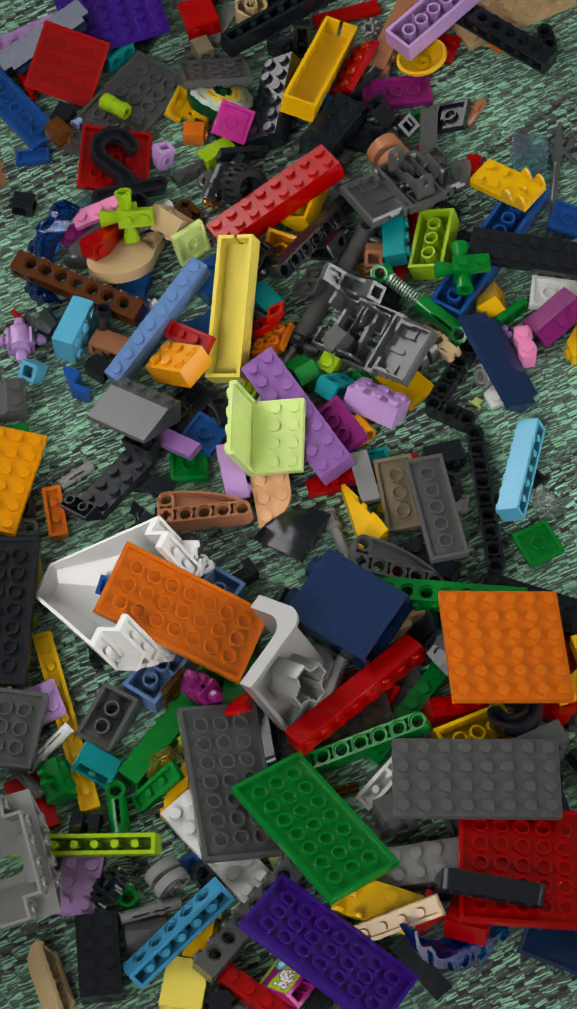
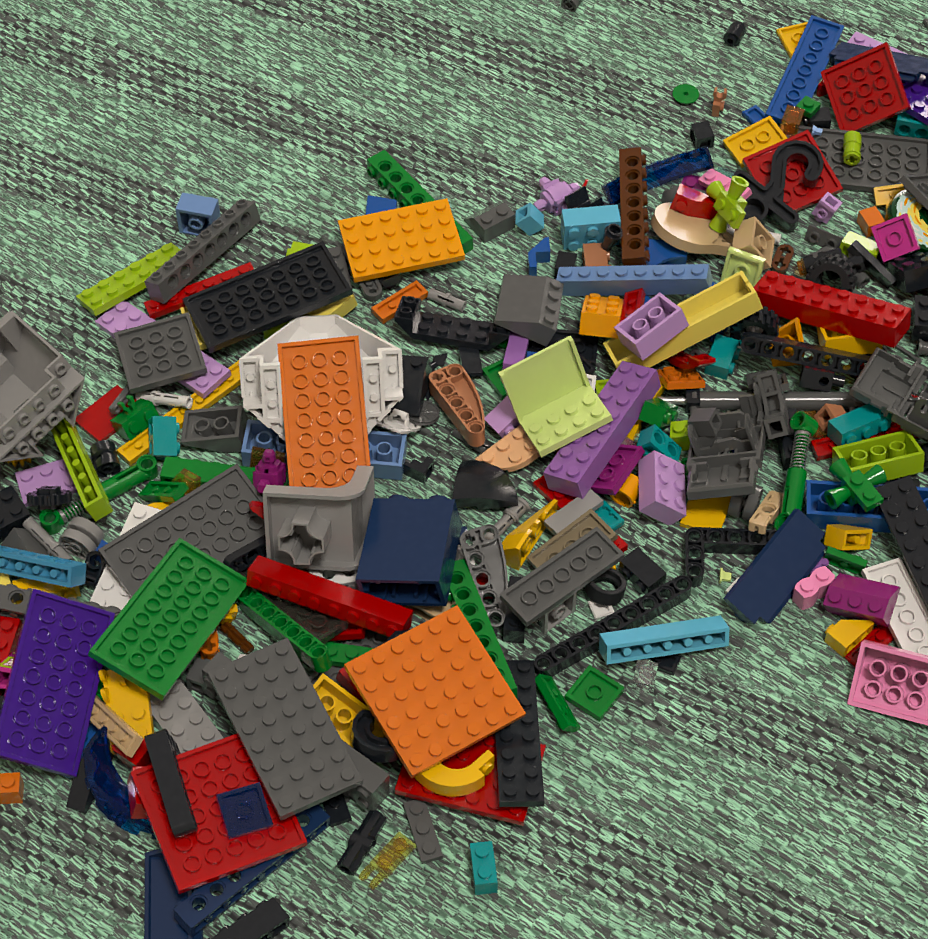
camera: 60 degrees right, 5 degrees down
(50, 112) = (810, 105): none -> green plate
(57, 169) = (753, 139): none -> yellow plate
(230, 327) = (651, 326): none -> lavender brick
(534, 575) = (556, 703): none -> green plate
(539, 844) = (244, 810): none -> clear blue plate

